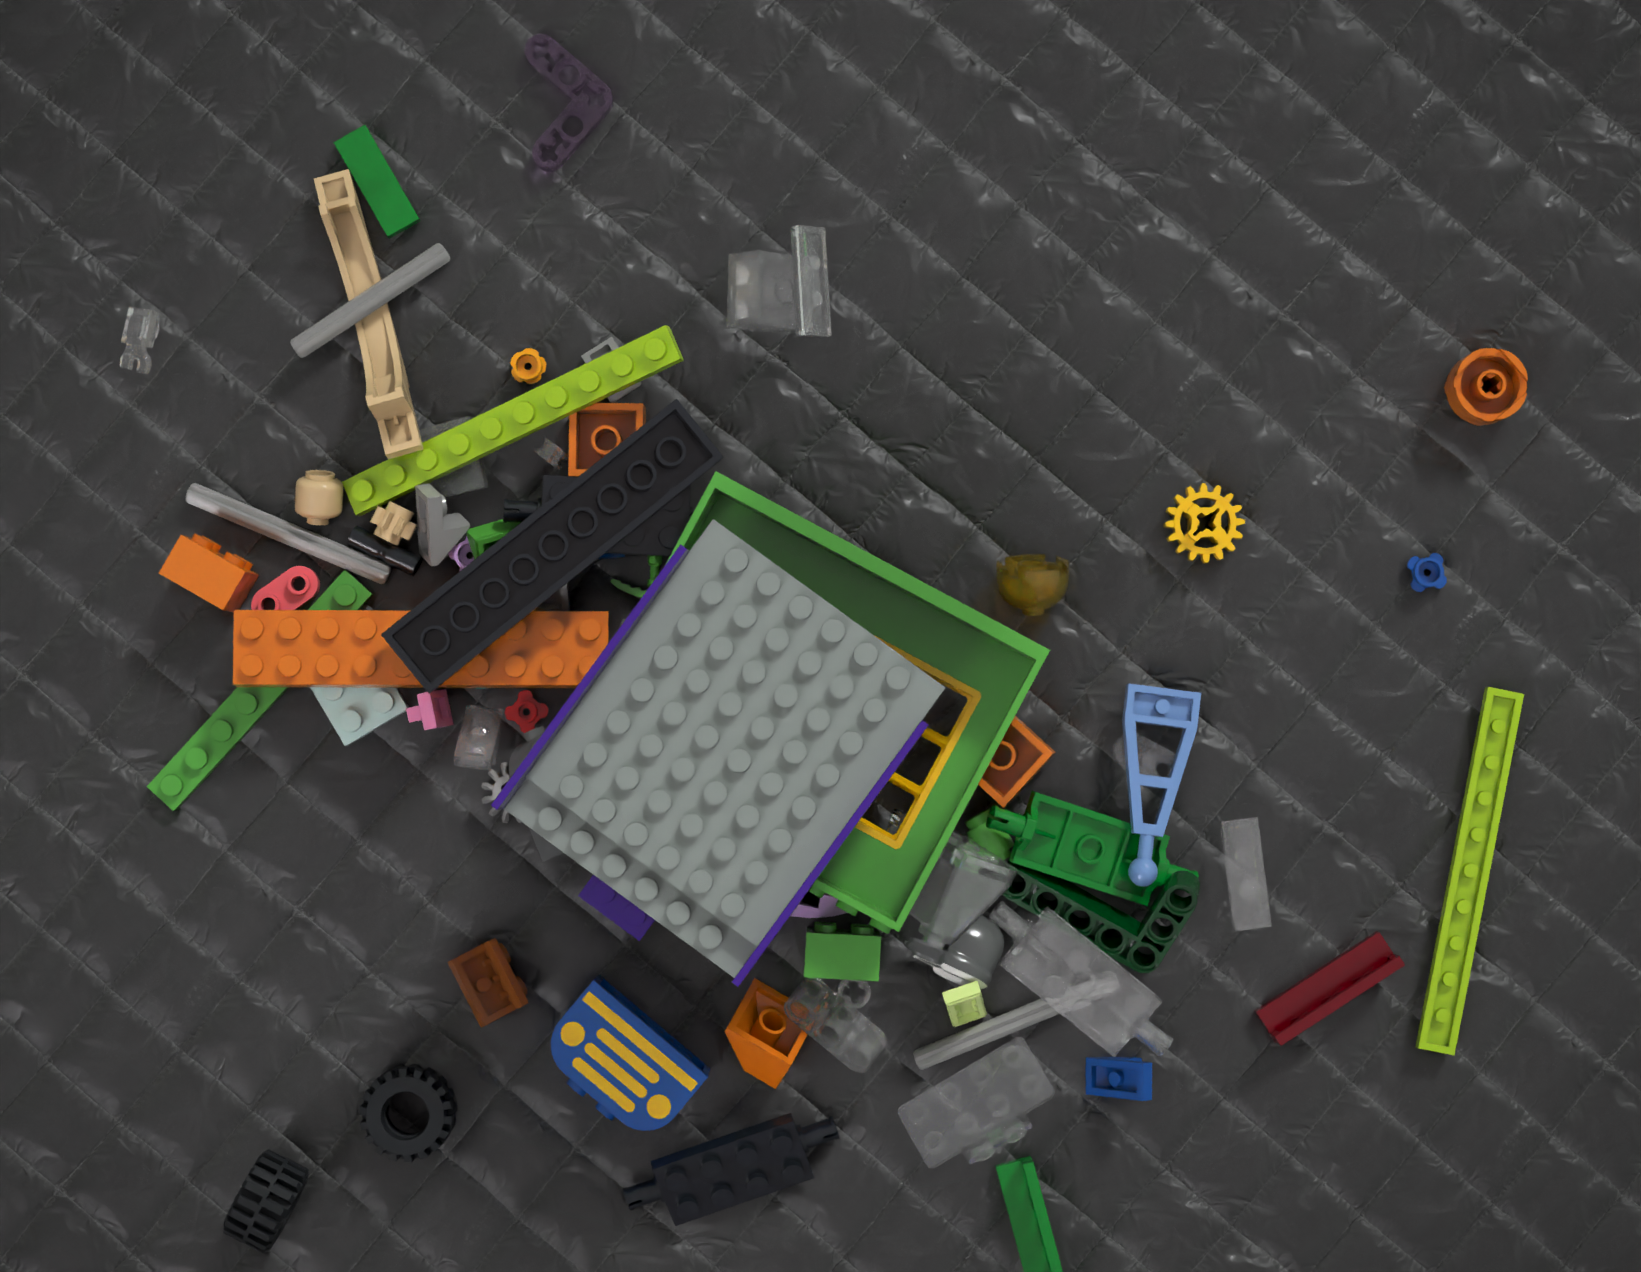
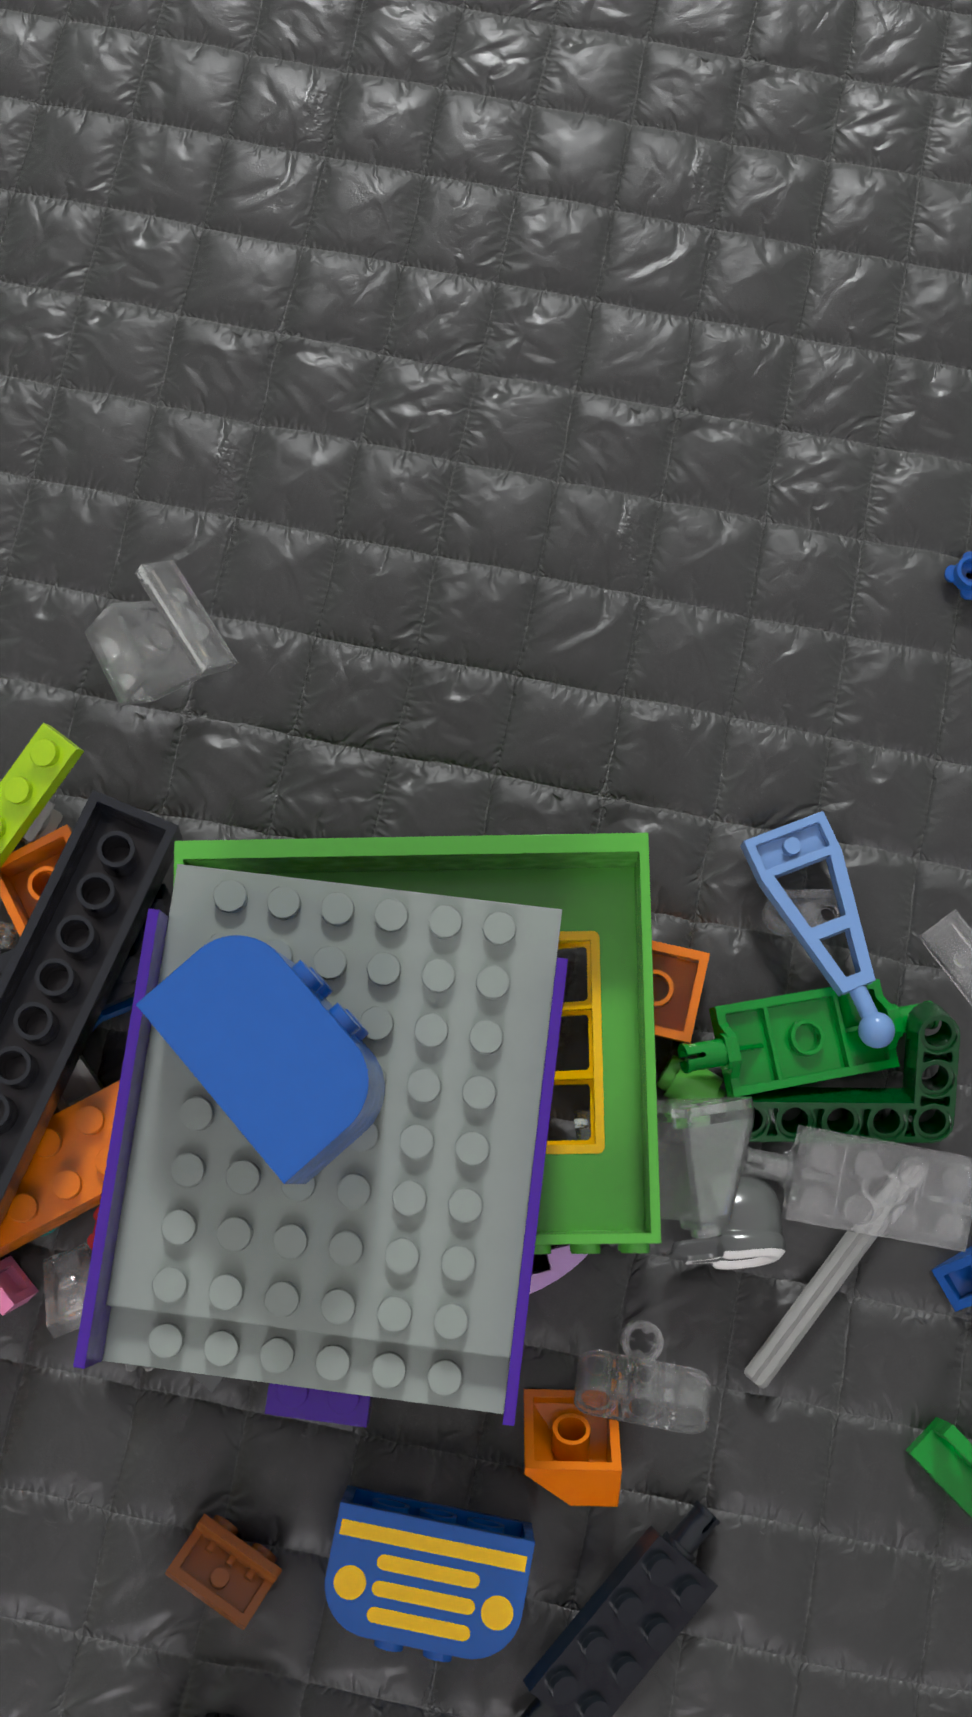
camera: 30 degrees left, 10 degrees down
(712, 681) = (271, 1052): none -> blue brick
(842, 953) = (606, 1304): bright green brick -> none
(964, 1004) = (772, 1285): yellowish green plate -> none
(978, 1106) = (850, 1395): clear bracket -> none
(1032, 582) = (584, 794): clear yellow cylinder -> none
(1216, 535) = (738, 644): yellow gear -> none
(1504, 396) = (918, 365): orange brick -> none

